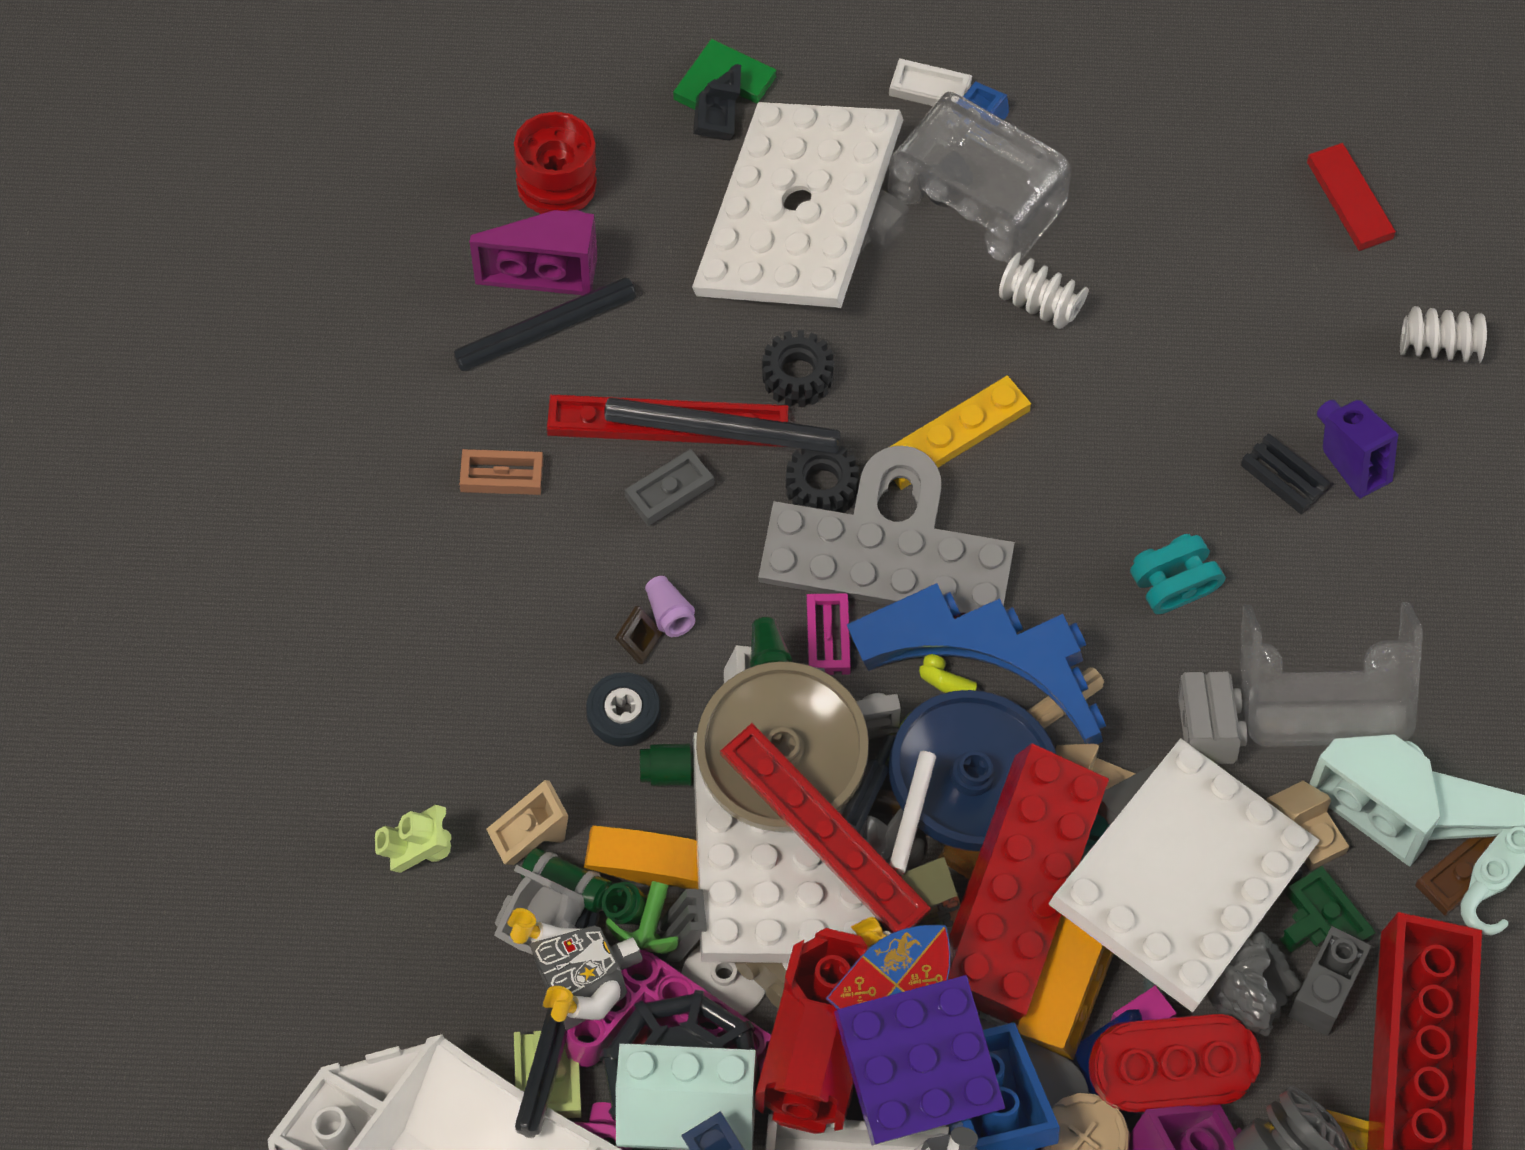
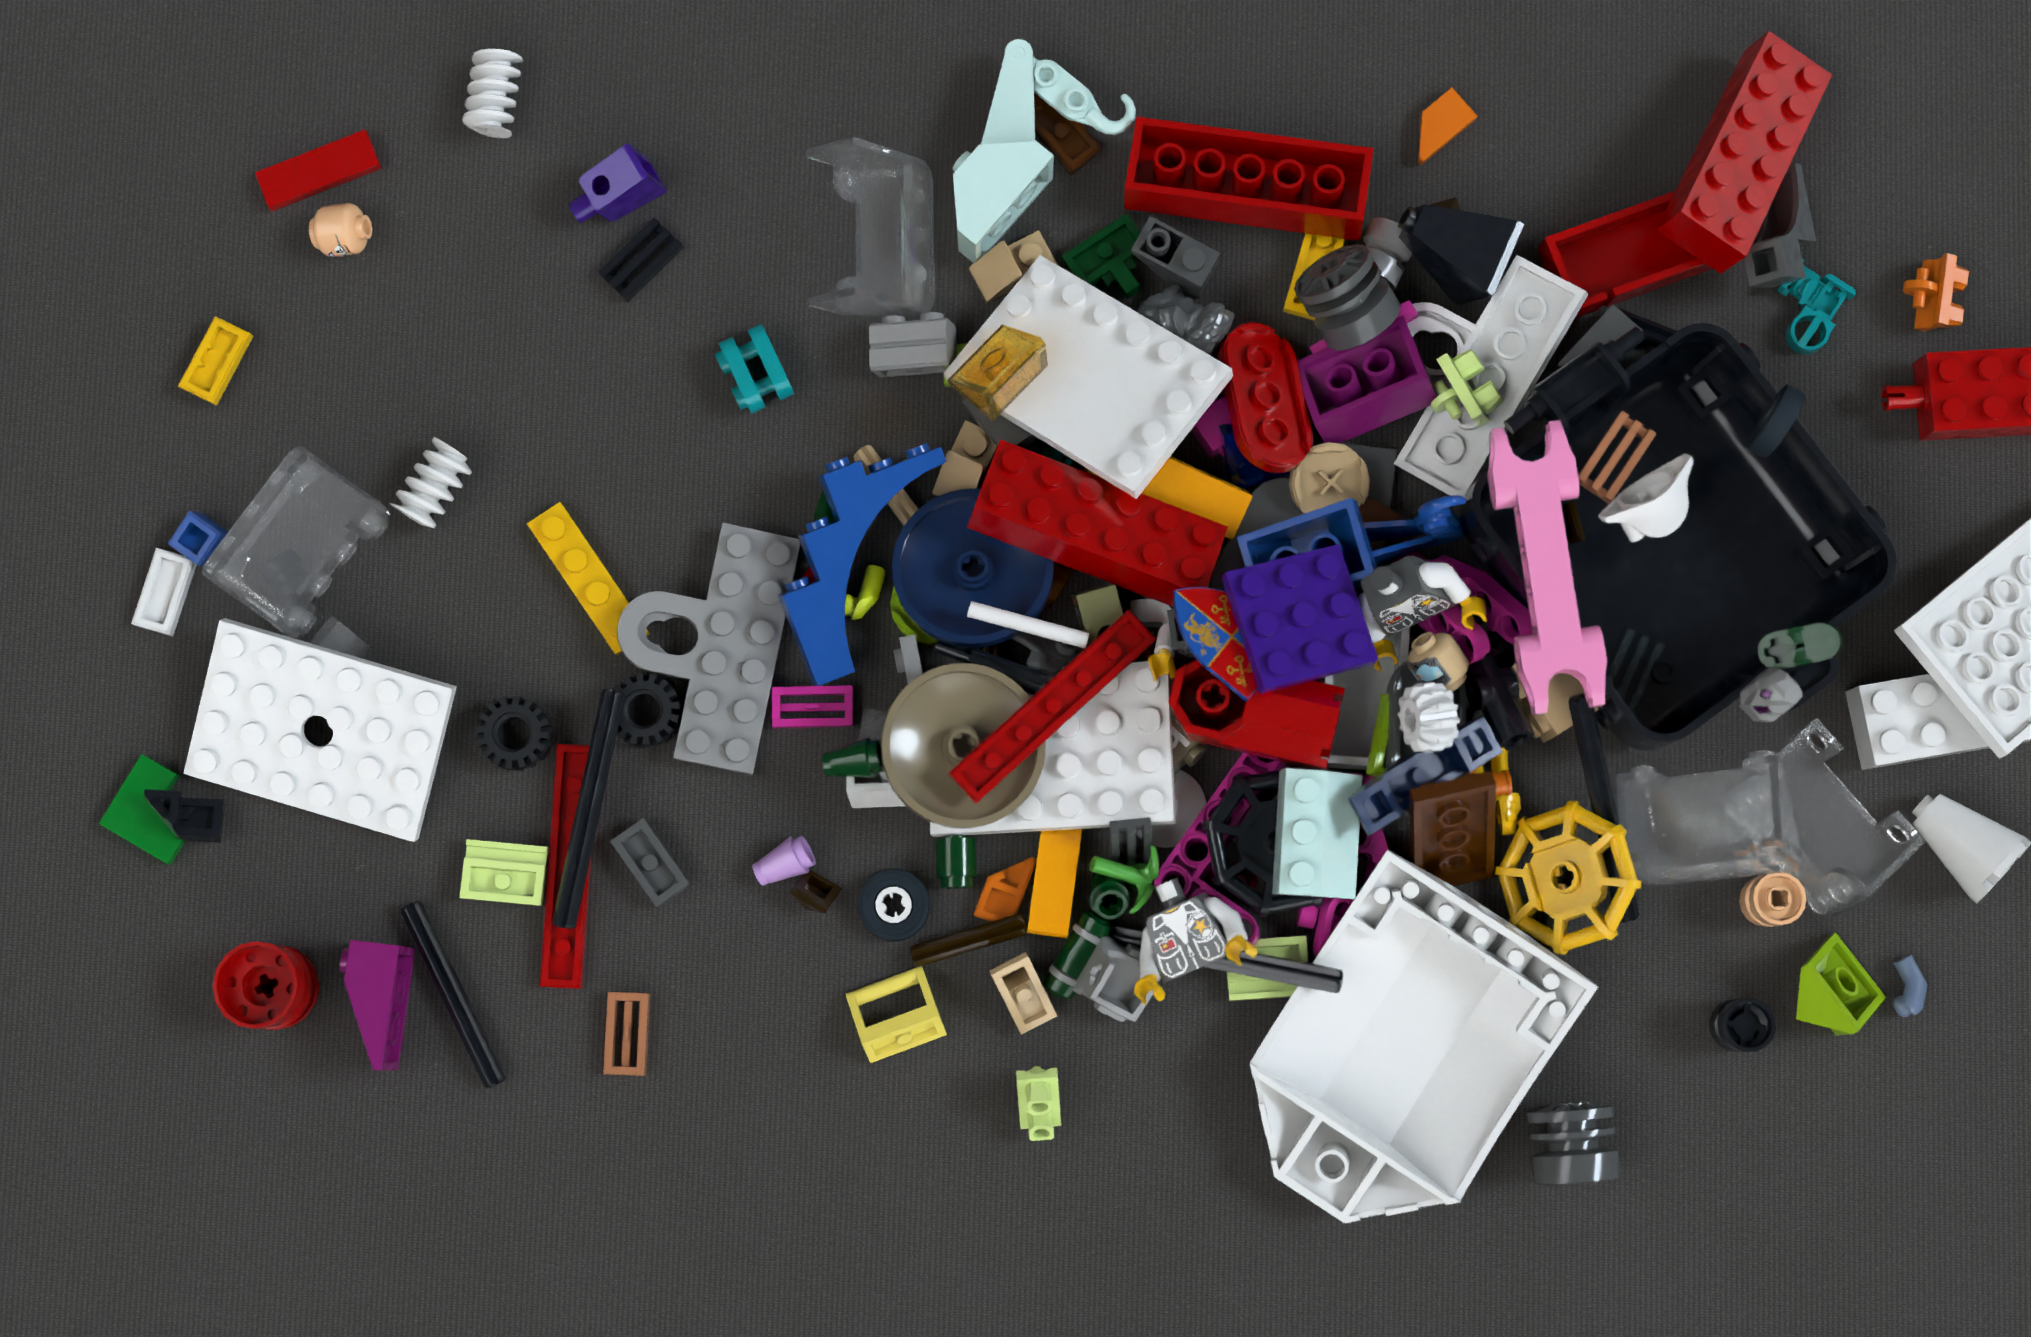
camera: 90 degrees left, 20 degrees up
(495, 717) = (902, 1030): none -> light yellow tile
(584, 775) = (969, 940): none -> dark brown axle
(629, 810) = (1005, 891): none -> orange tile
(661, 362) = (504, 872): none -> yellowish green plate
(1154, 116) = (215, 361): none -> yellow plate
(1181, 781) = (1000, 370): none -> clear yellow slope
(1289, 209) = (340, 230): none -> light nougat head

